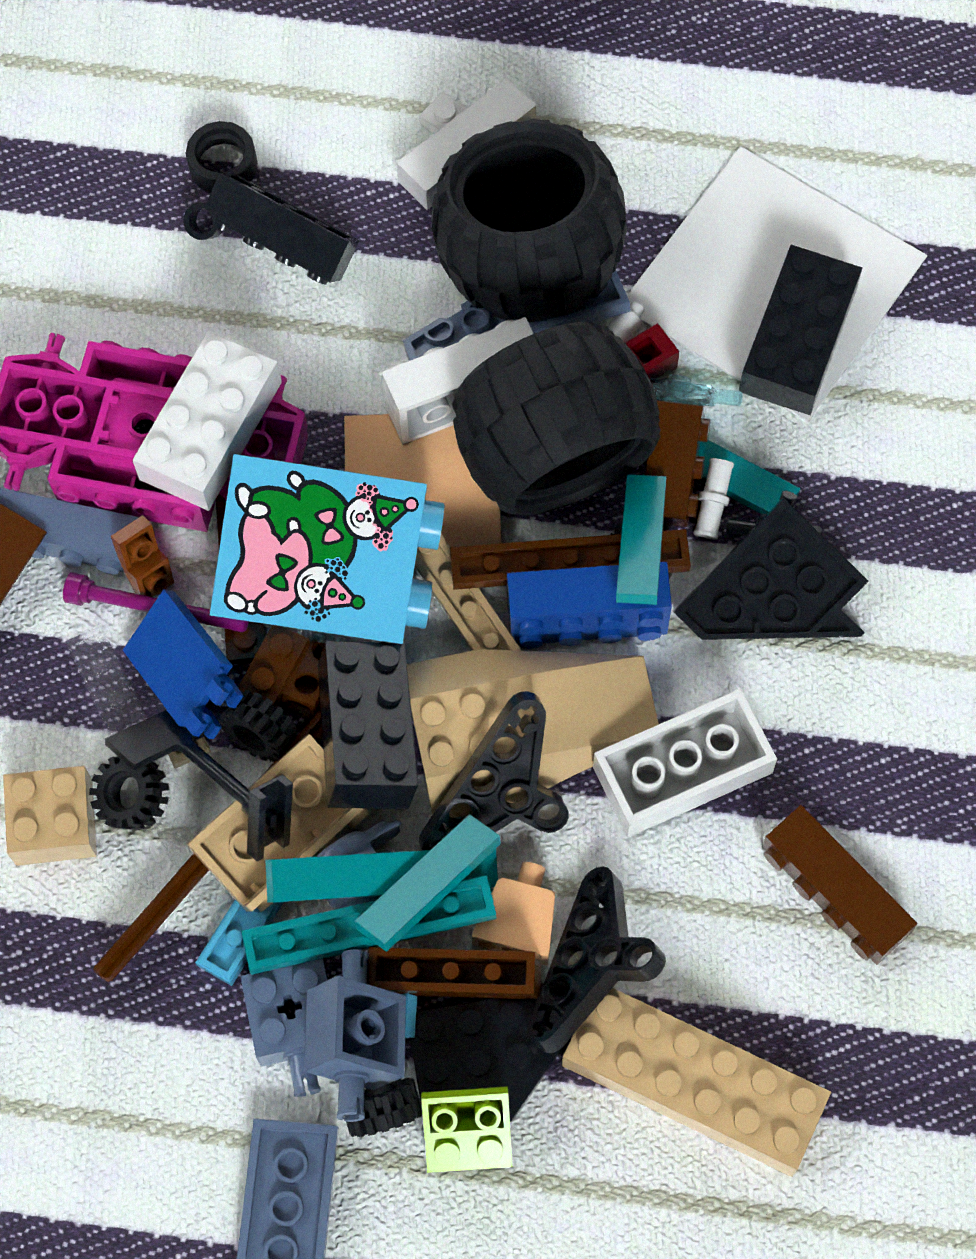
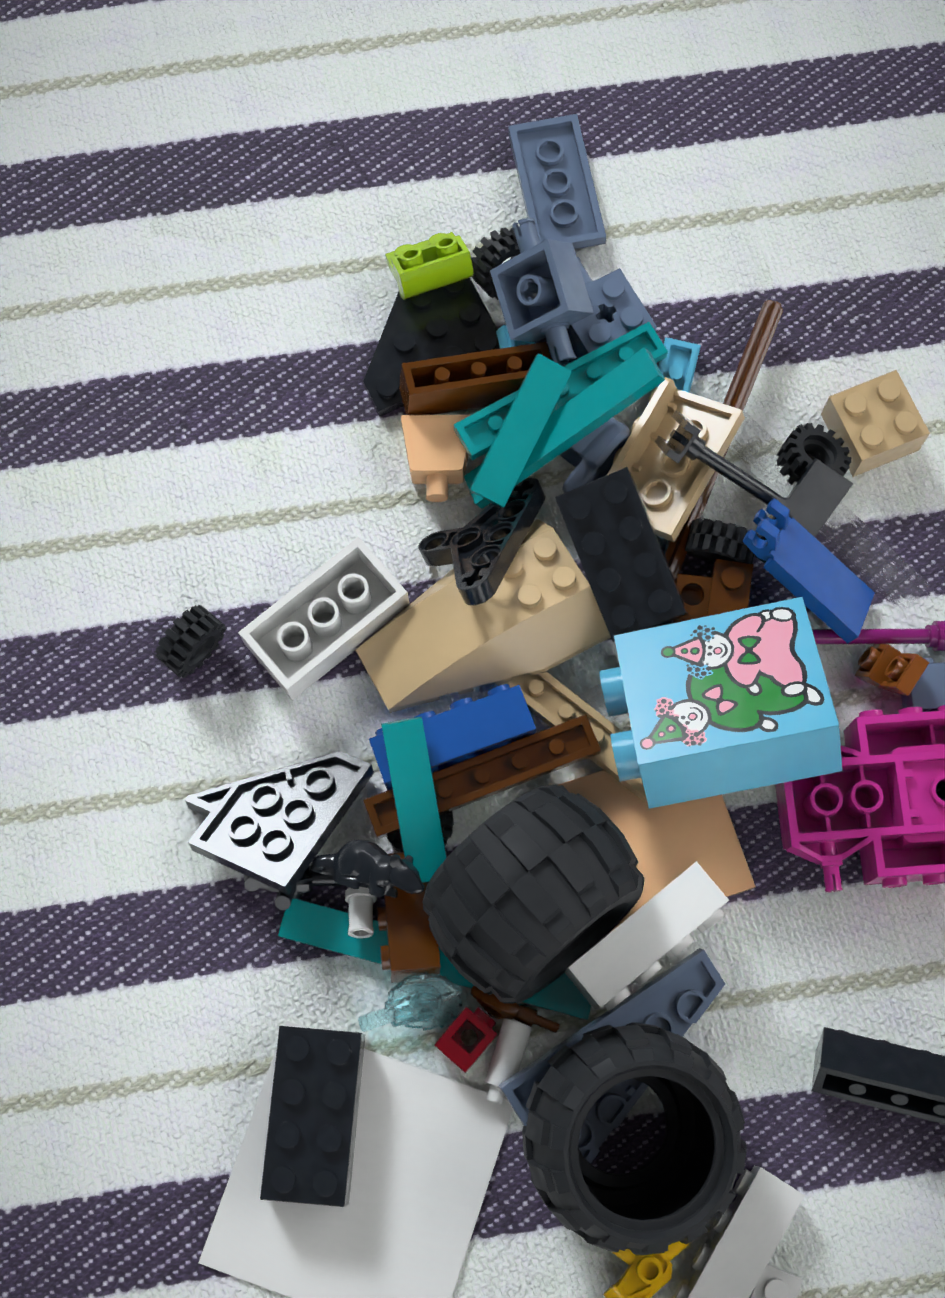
camera: 165 degrees right, 5 degrees up
(207, 420) = (884, 797): white brick -> none
(588, 980) = (360, 438): black beam -> none
(698, 1080) = (252, 361): tan brick -> none
(705, 503) = (369, 866): none -> black animal
(827, 775) = (190, 641): none -> black tyre
(838, 885) = (164, 554): reddish brown brick -> none

